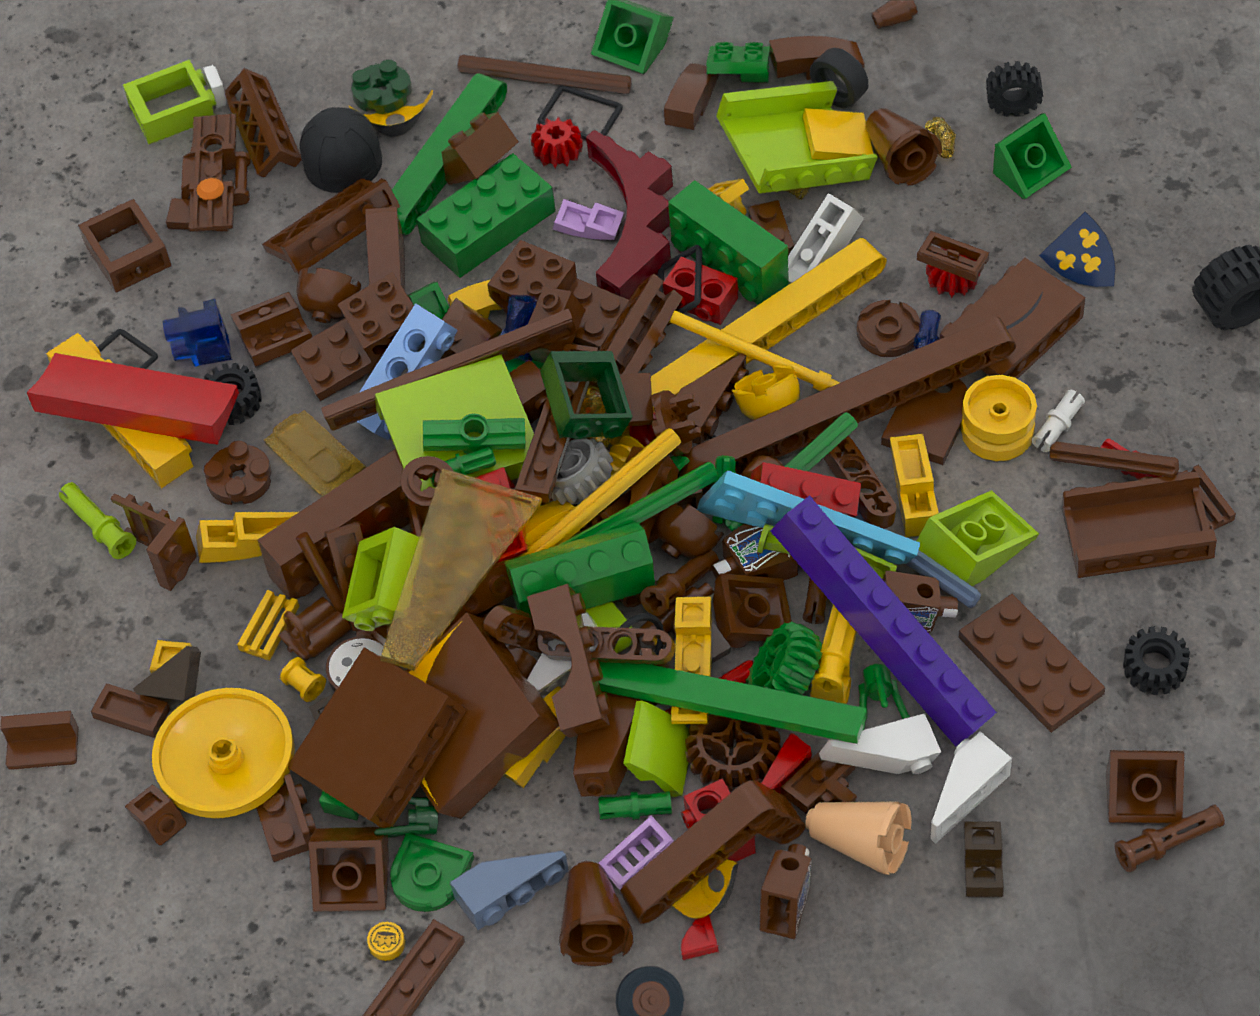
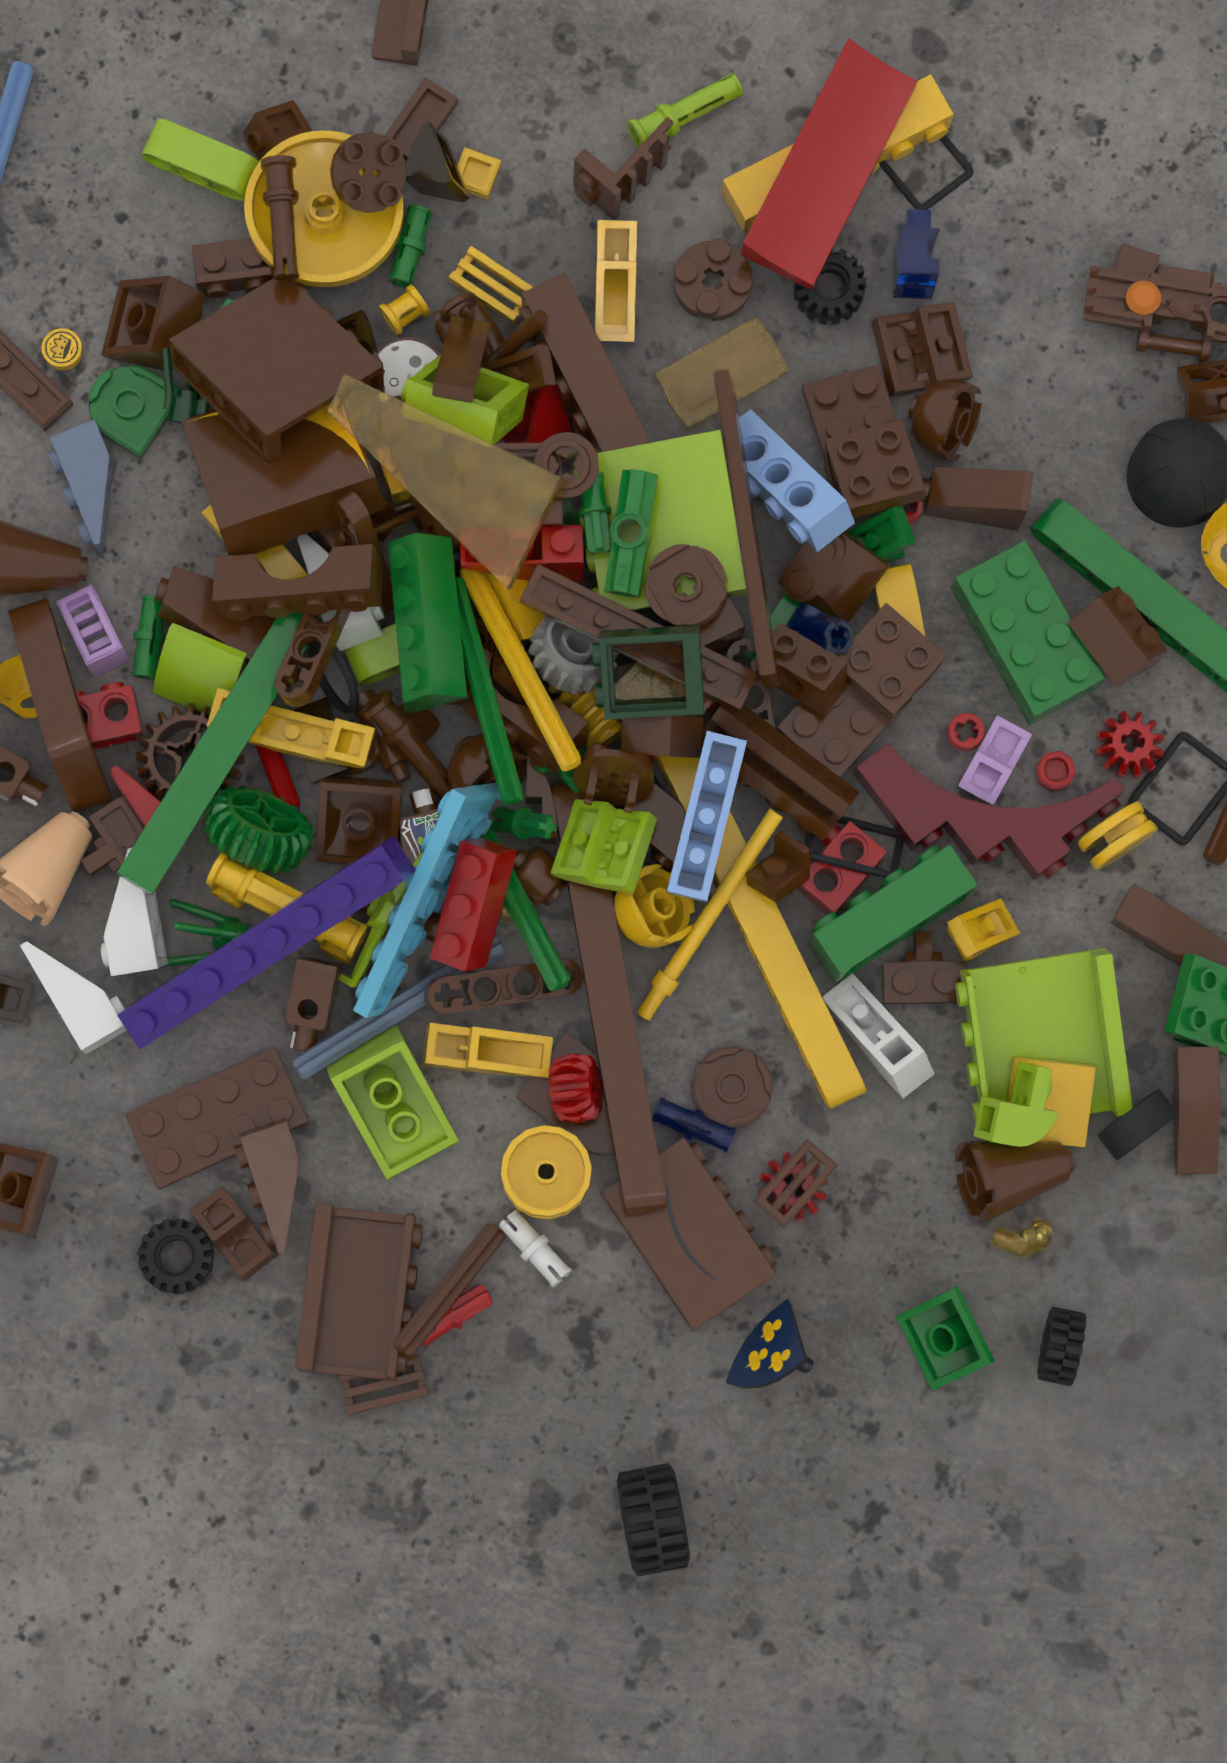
camera: 90 degrees right, 25 degrees up
(122, 271) = (1057, 202): reddish brown window -> none
(188, 709) = (370, 153): none -> reddish brown plate
(190, 866) = (199, 159): none -> lime beam
(223, 773) = (281, 198): none -> reddish brown pin
(268, 687) = (410, 245): none -> green pin
(330, 224) = (1038, 447): reddish brown fence -> none
(348, 587) = (461, 359): none -> reddish brown tile
(509, 373) = (708, 593): none -> reddish brown plate
(567, 235) = (971, 743): none -> red bush
(588, 183) = (1055, 771): none -> red tile
(629, 127) = (1121, 831): none -> yellow head
(690, 351) = (706, 816): none -> light blue brick
(714, 309) = (782, 870): none -> reddish brown bracket
(730, 422) = (604, 846): none -> lime slope
(856, 132) = (1022, 1118): none -> lime brick
(927, 403) = (575, 1088): none -> red gear
(1064, 596) = (274, 1168): none -> reddish brown slope
(1116, 629) = (233, 1233): none -> reddish brown slope

